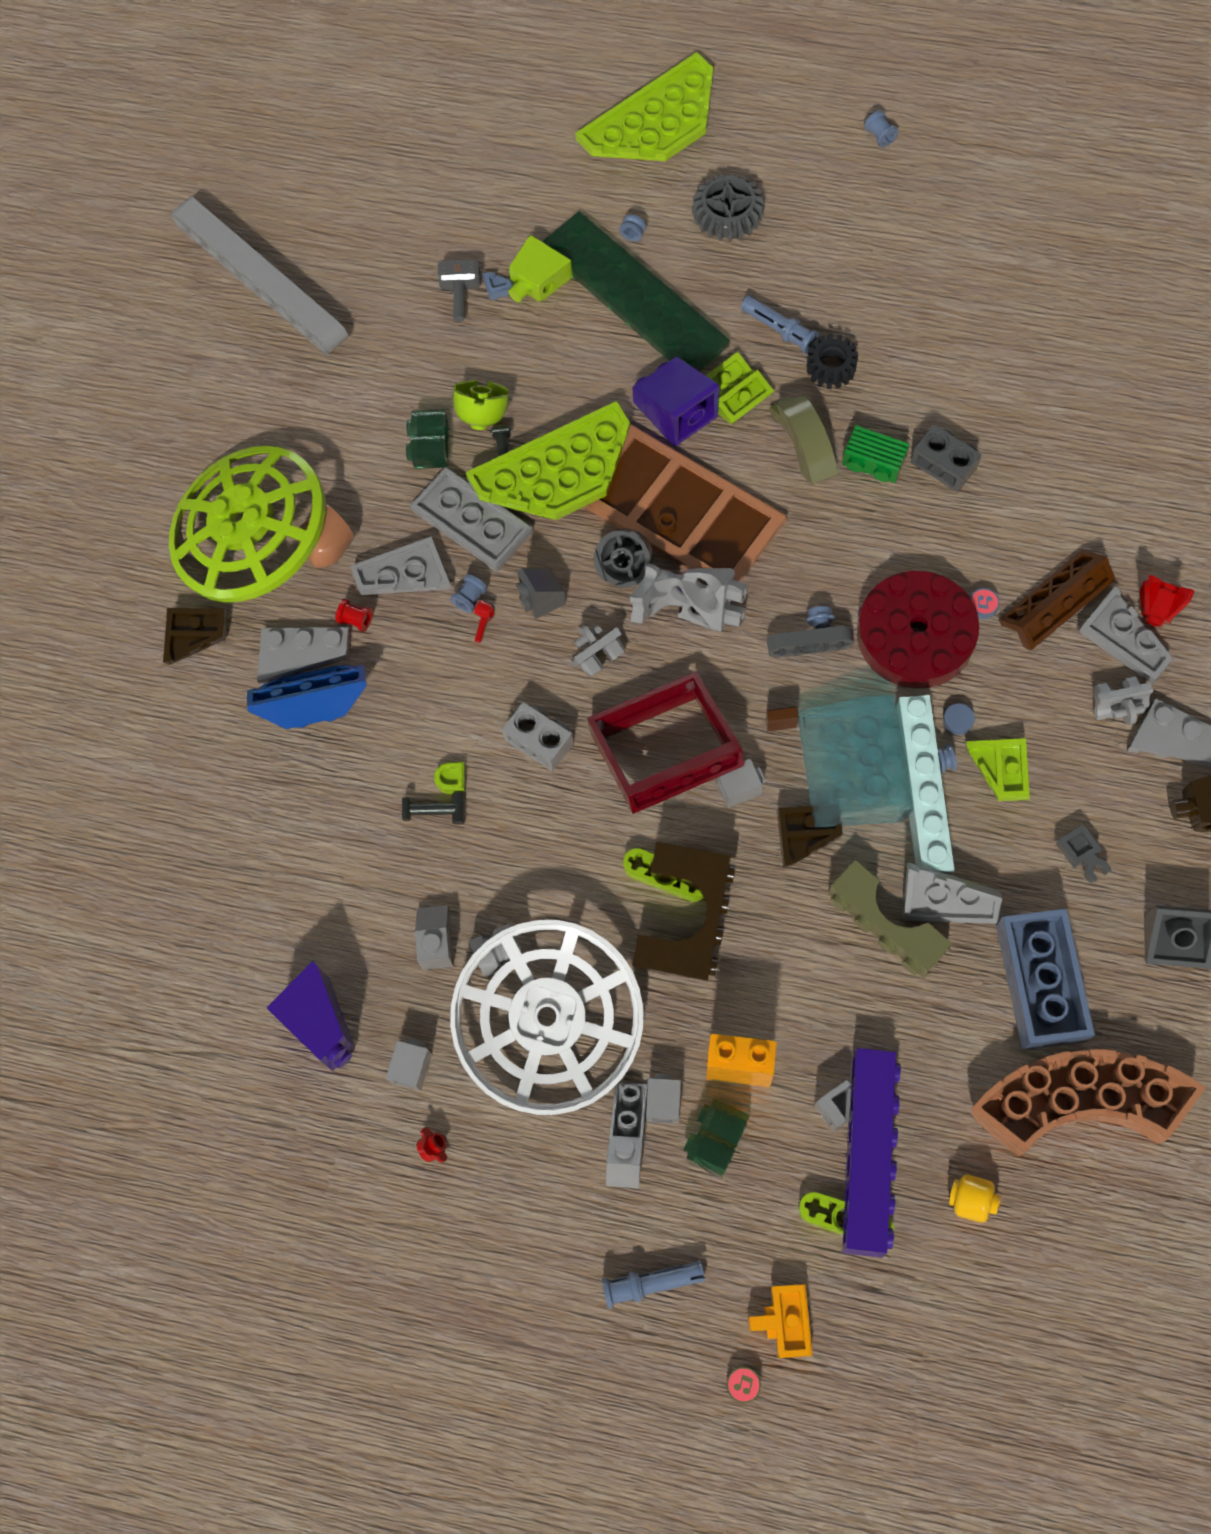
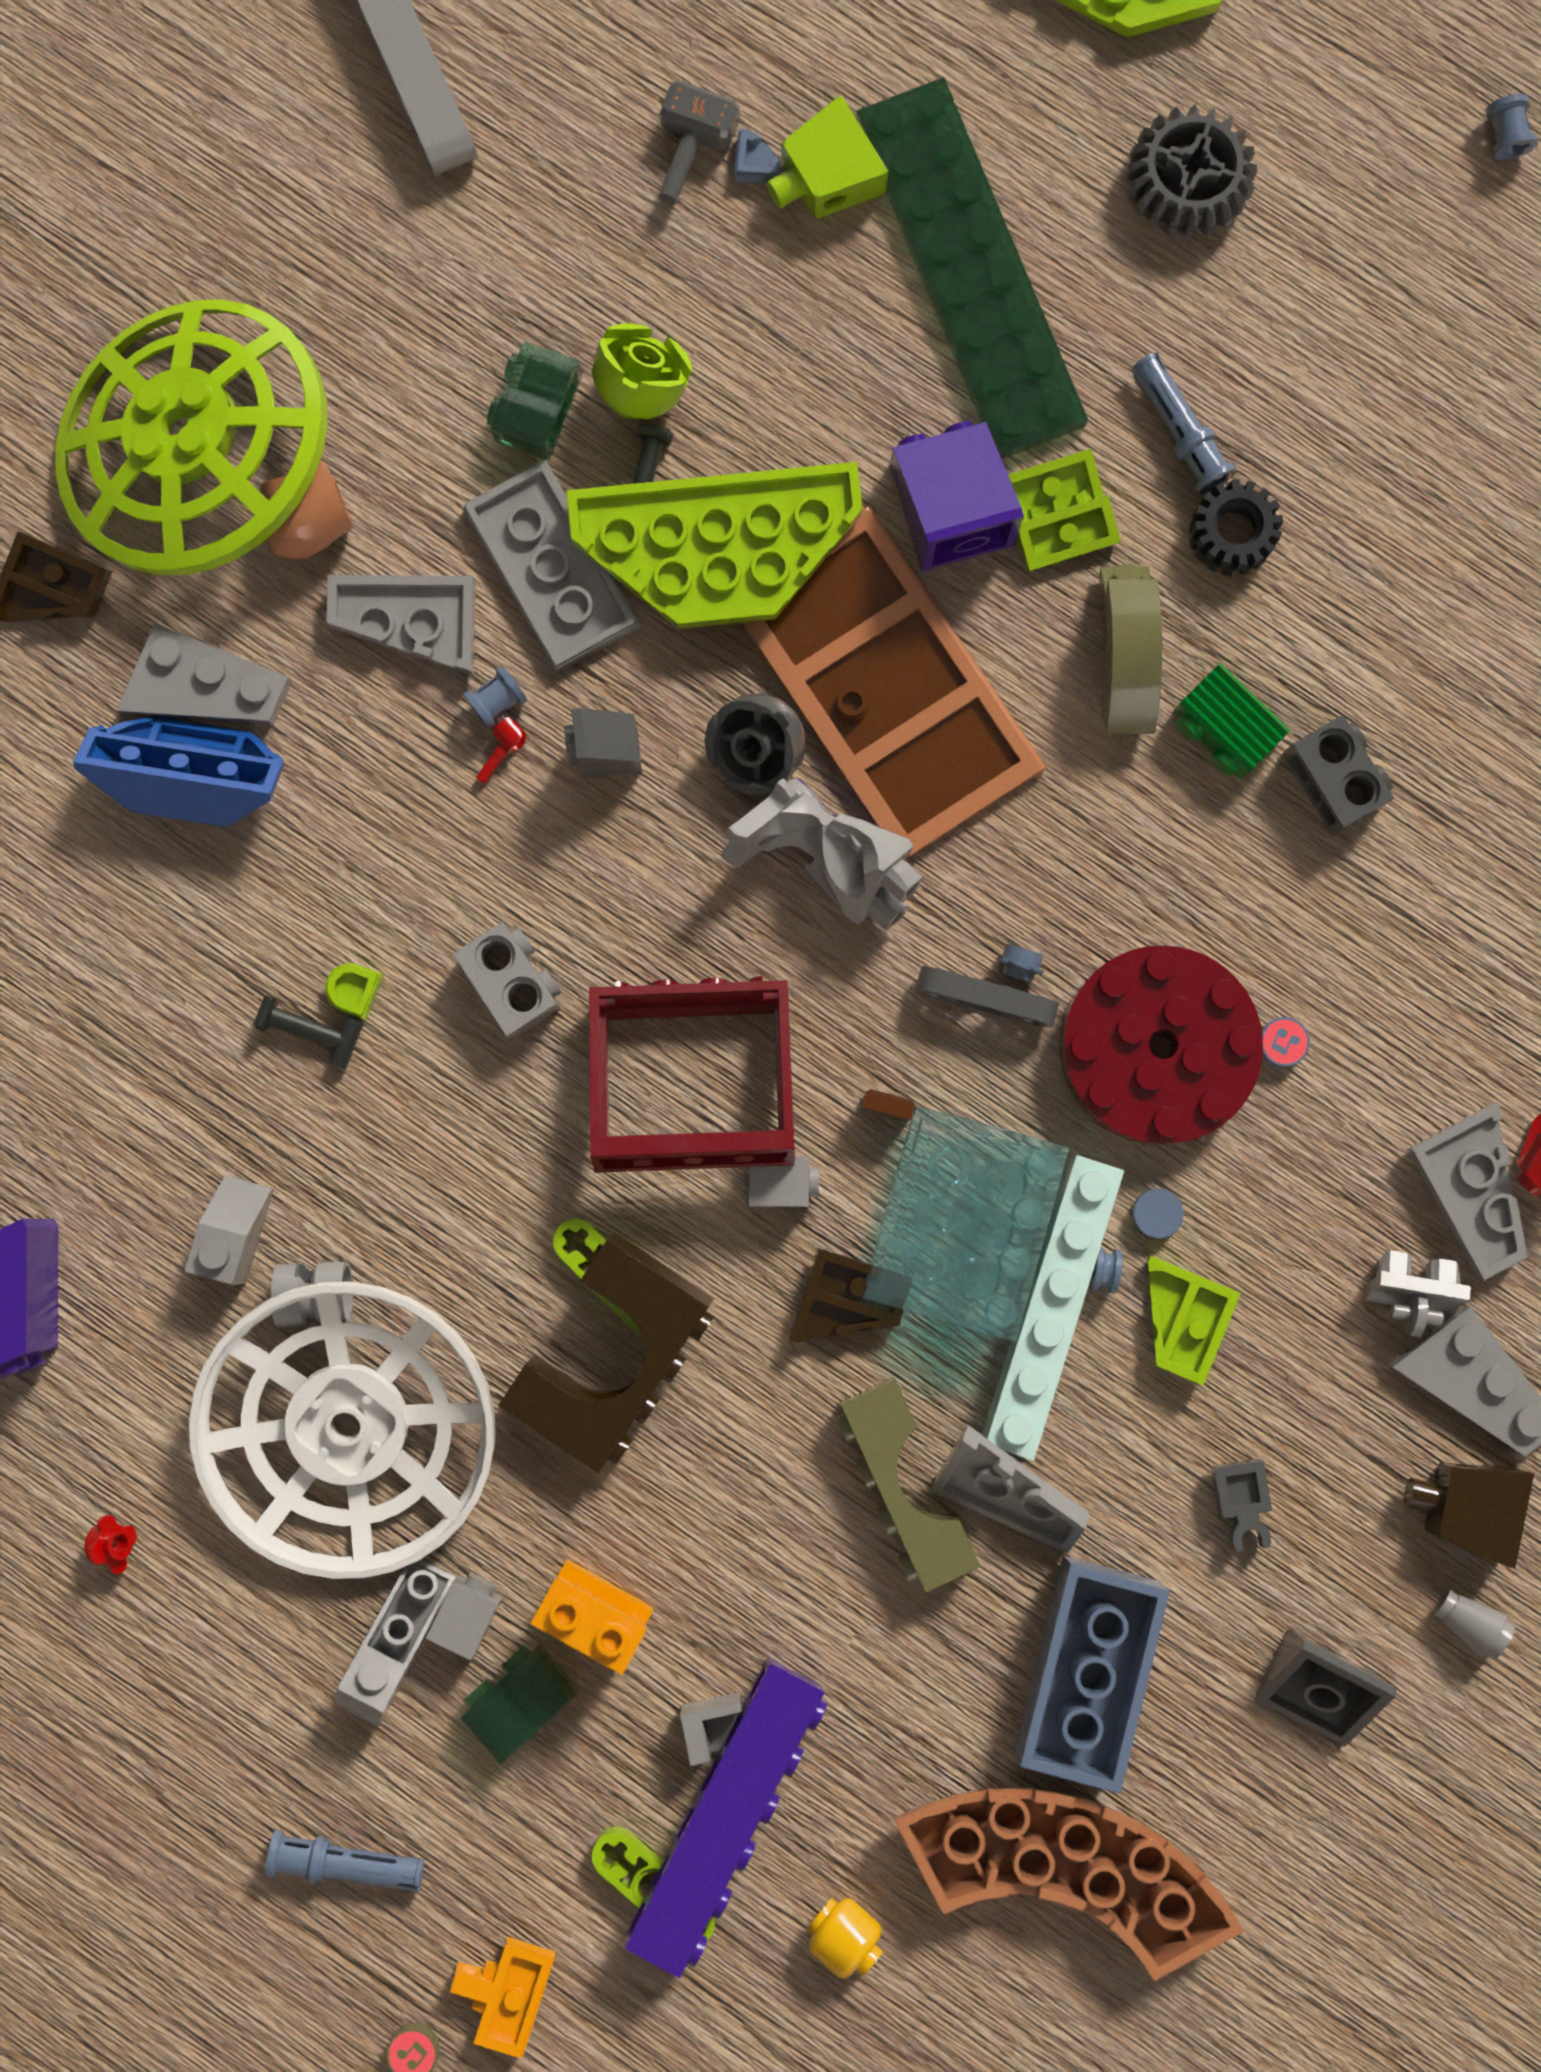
camera: 15 degrees right, 15 degrees up
(354, 615) = (304, 660): red bush -> none
(409, 1064) = (121, 1412): light grey brick -> none
(609, 643) = (633, 880): light grey hips -> none
(632, 228) = (1018, 146): sand blue bush -> none
(1062, 599) = (1408, 1088): reddish brown fence -> none

